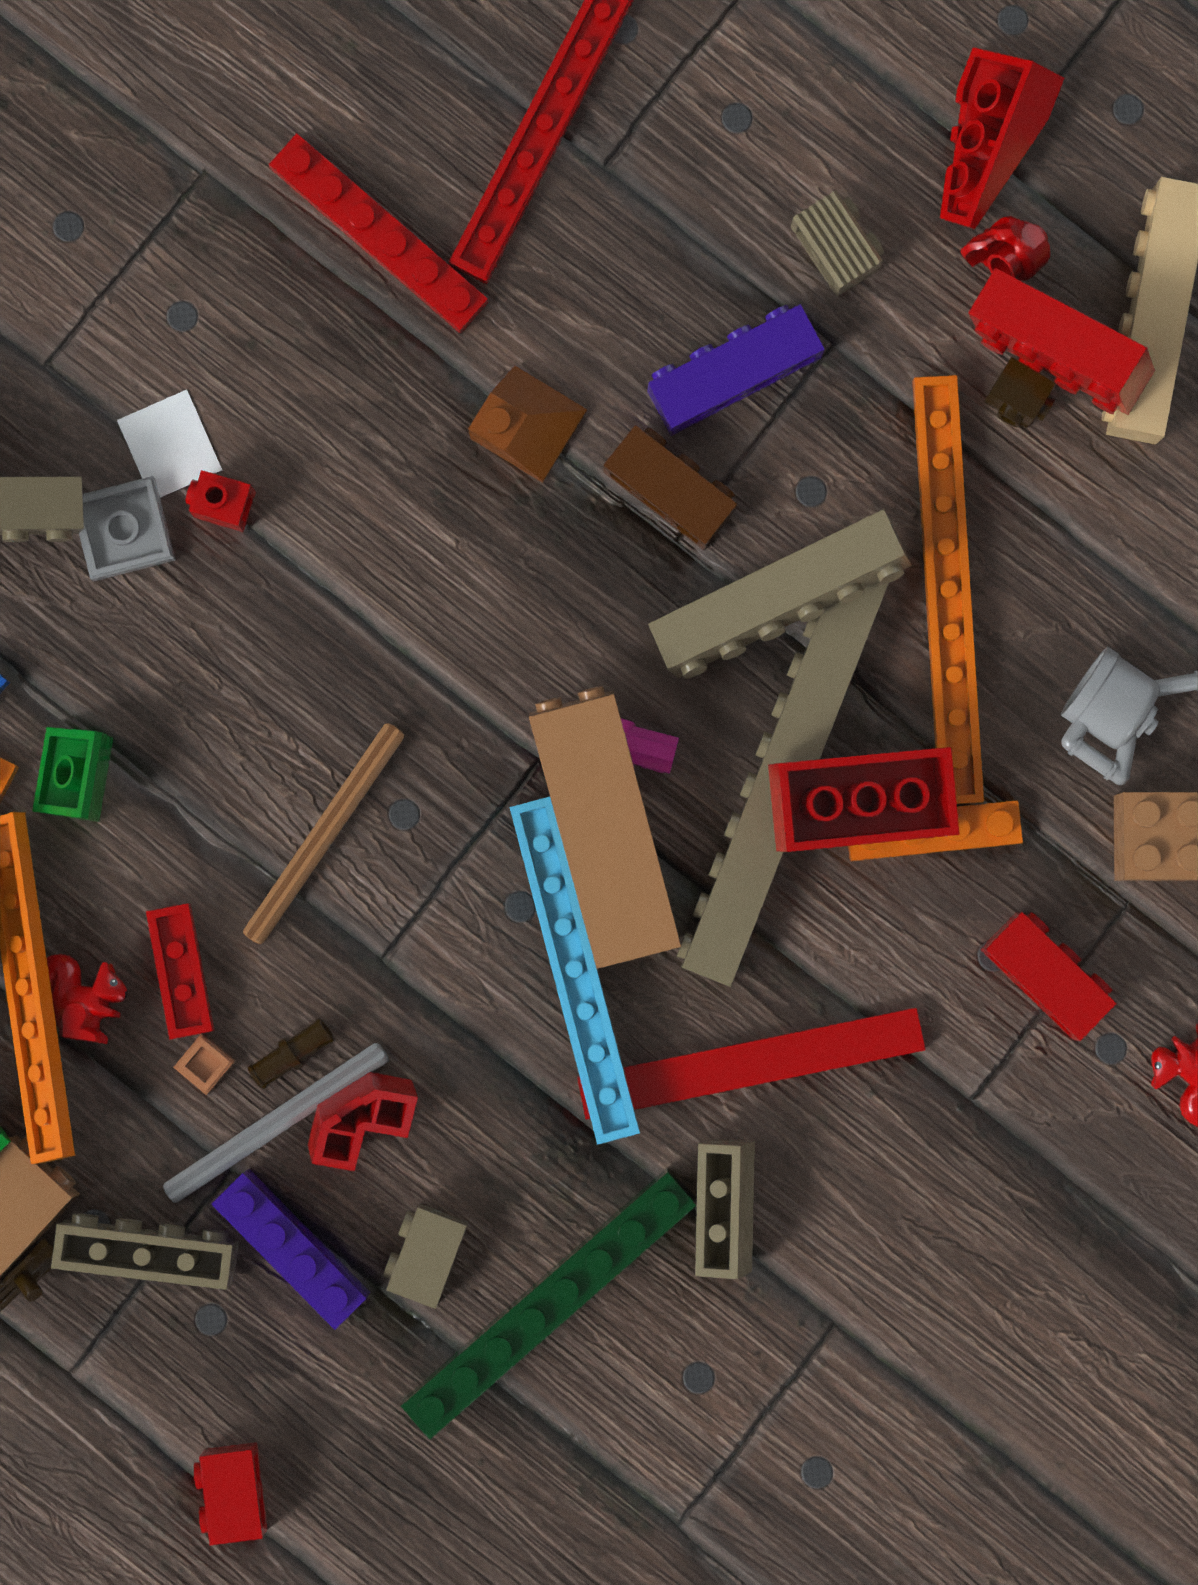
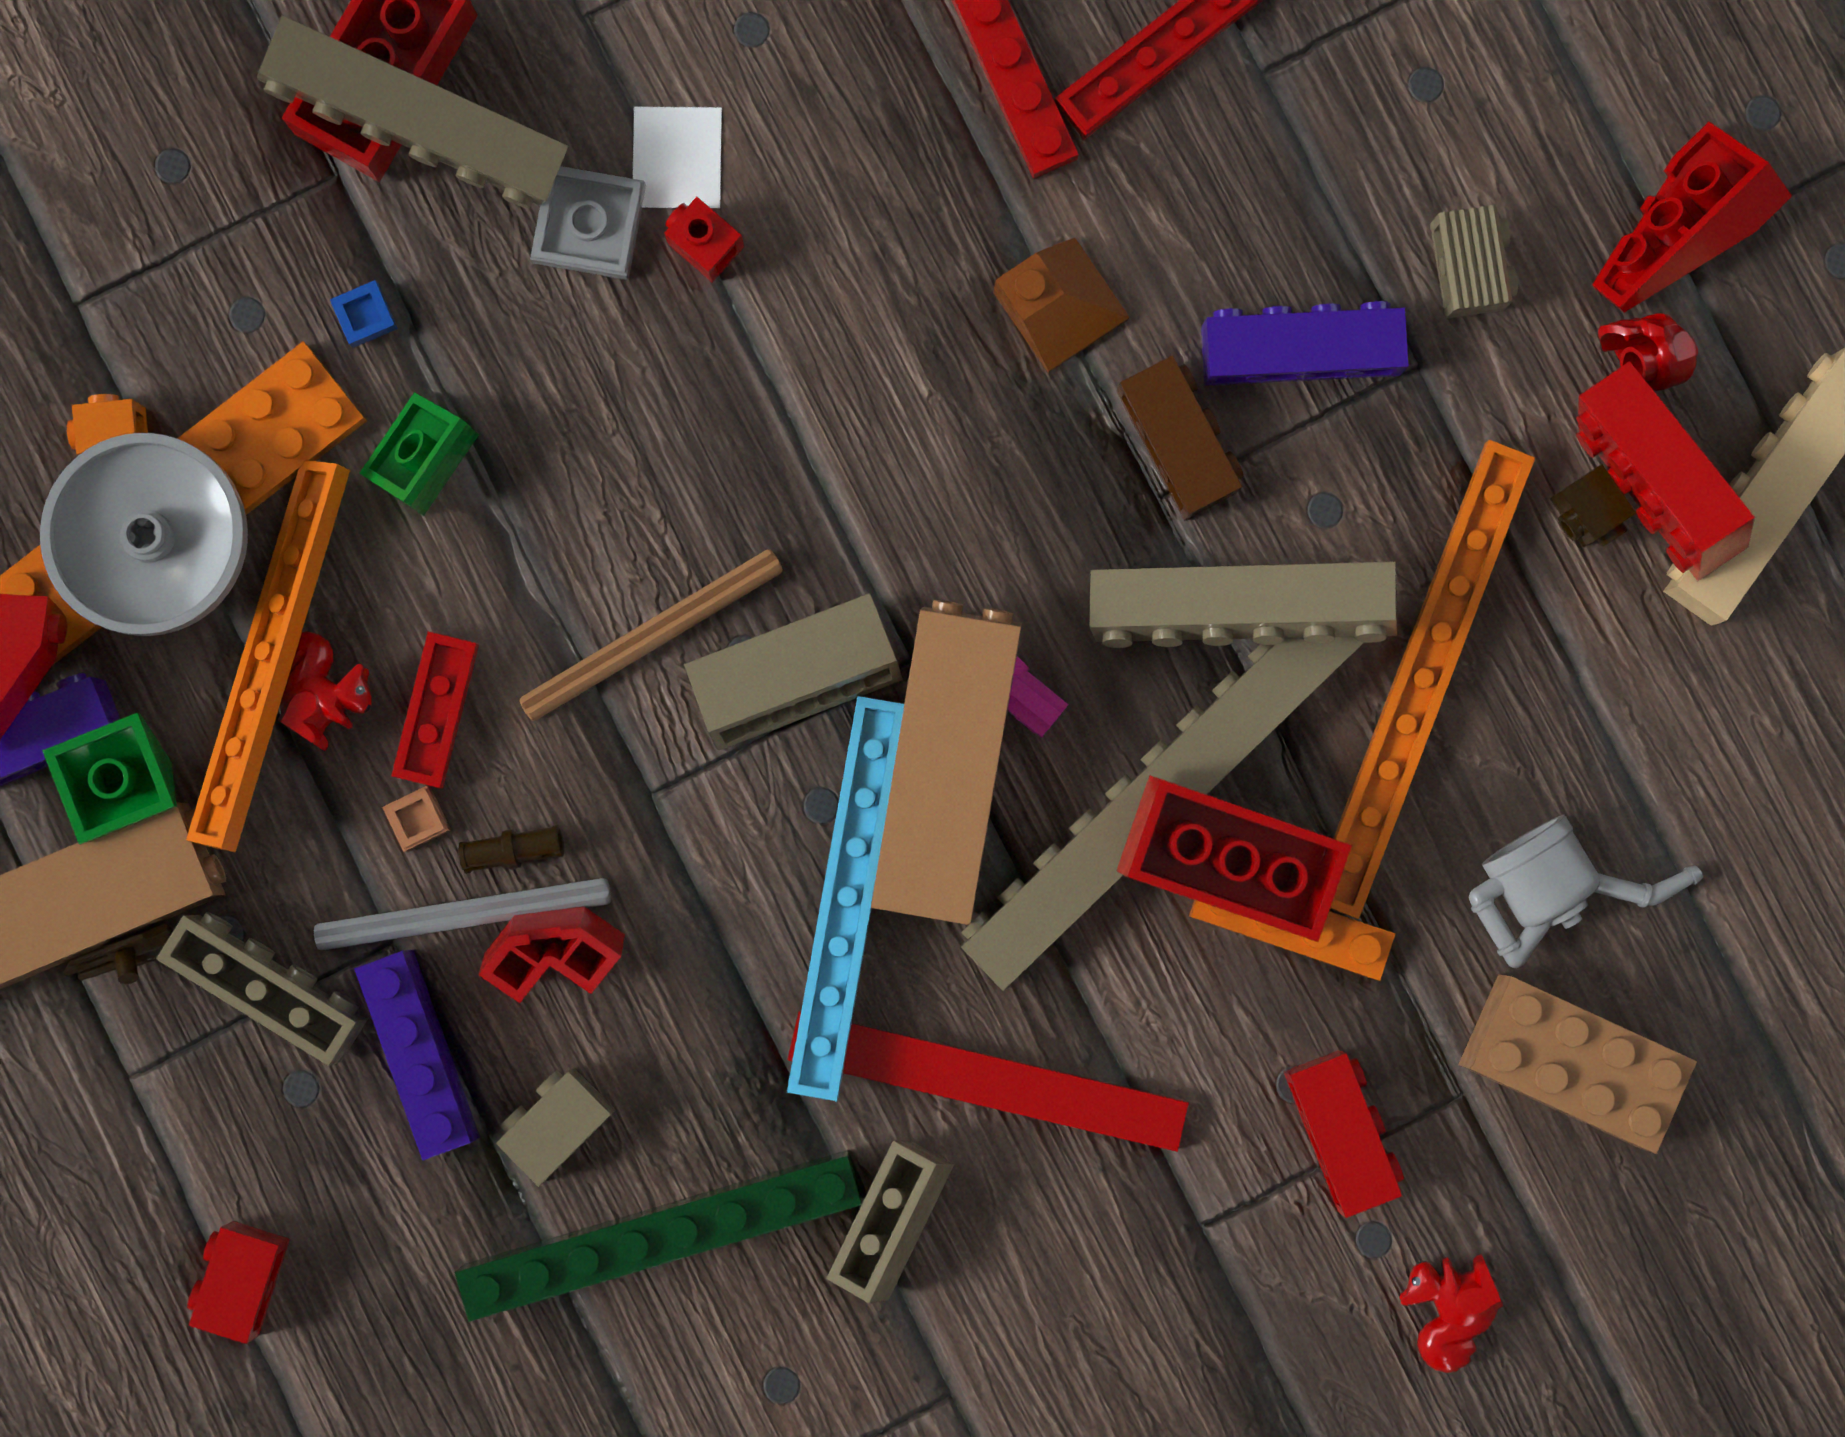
camera: 20 degrees right, 0 degrees up
(450, 811) = (793, 672): none -> dark tan brick

